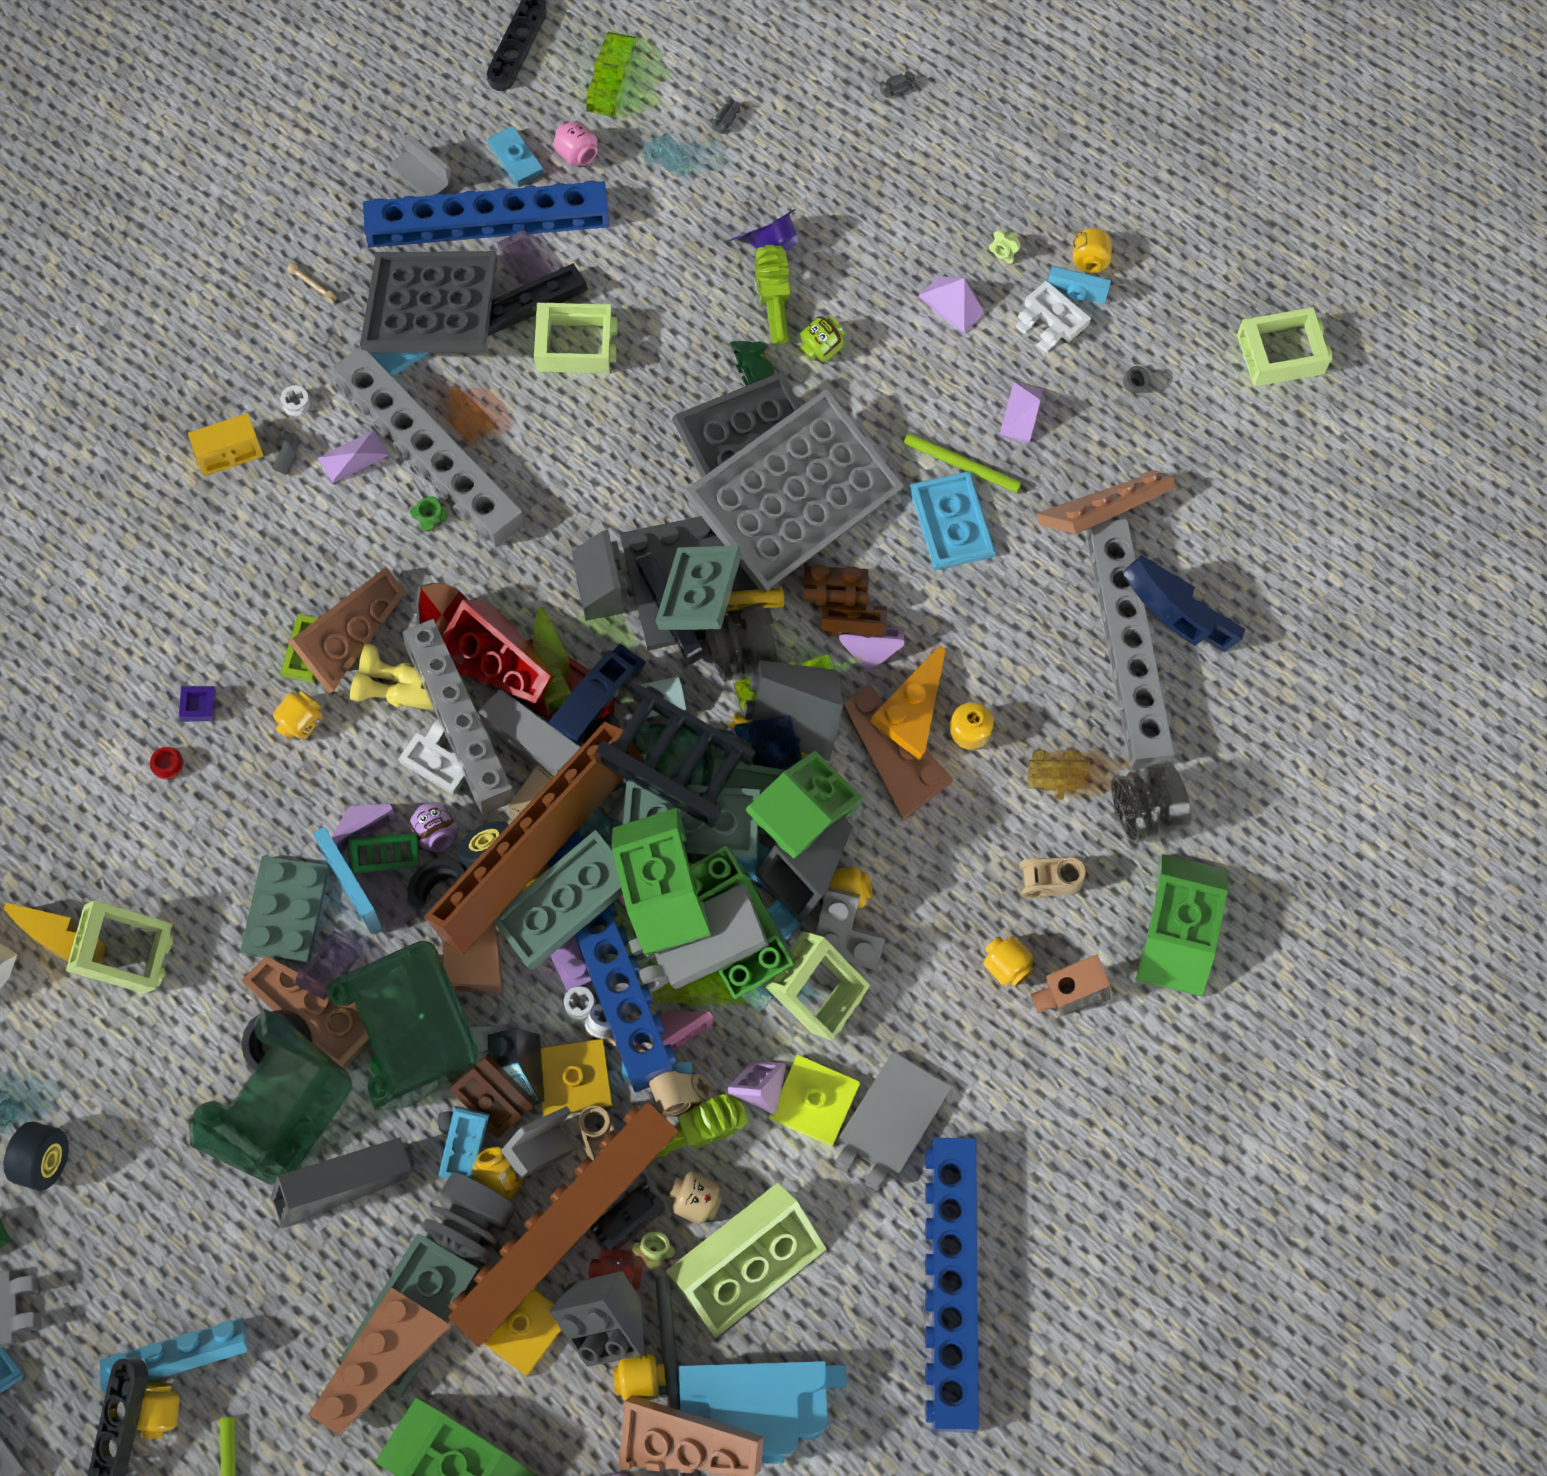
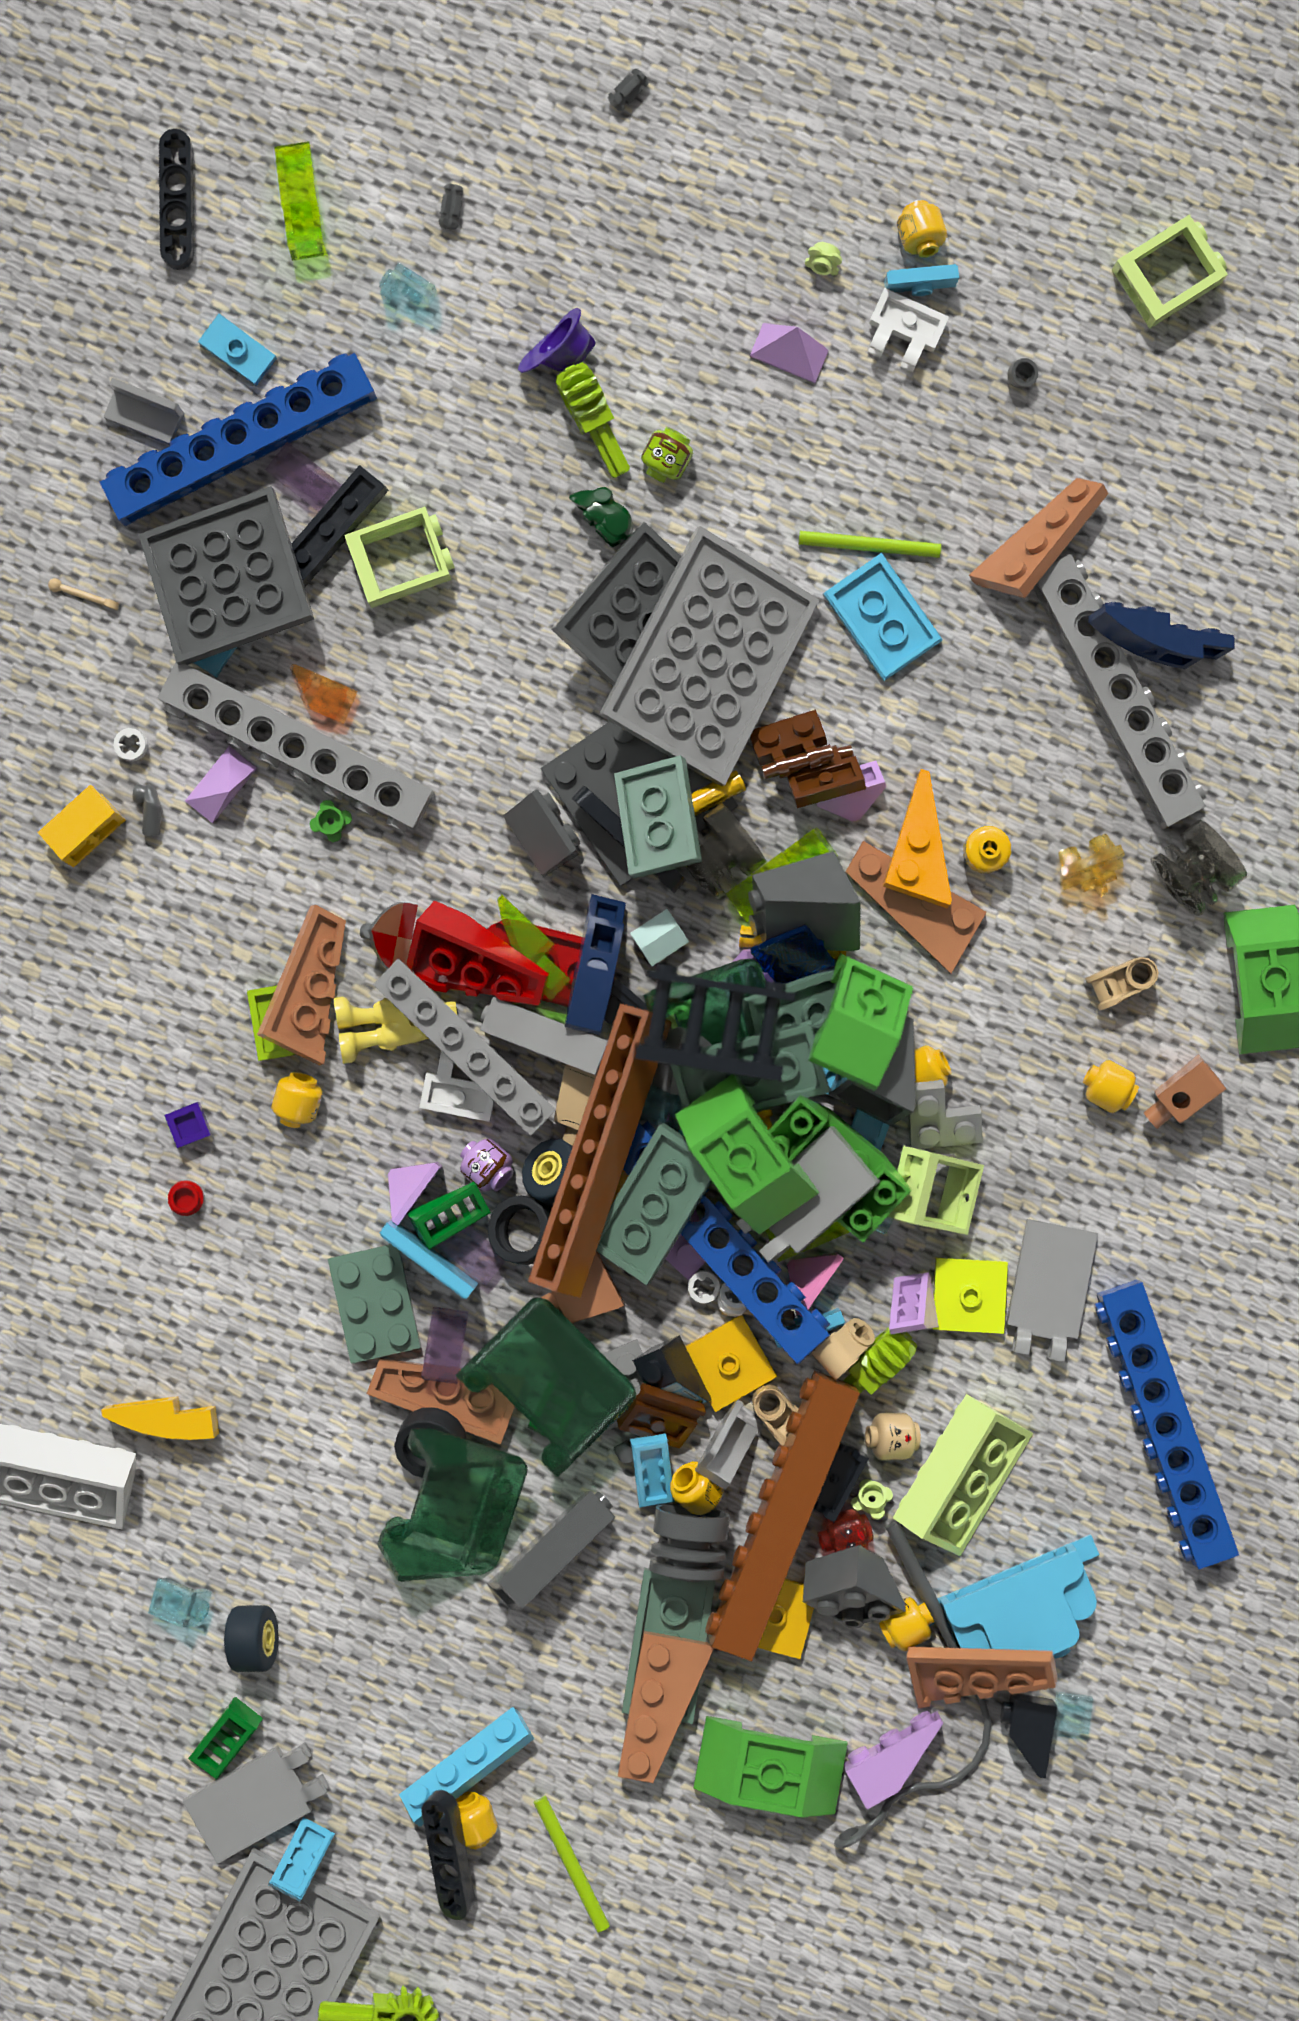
camera: 15 degrees left, 20 degrees up
(86, 939) = (203, 1420): yellowish green window -> none
(575, 143) = (300, 312): bright pink head -> none
(1021, 412) = (911, 457): lavender slope -> none

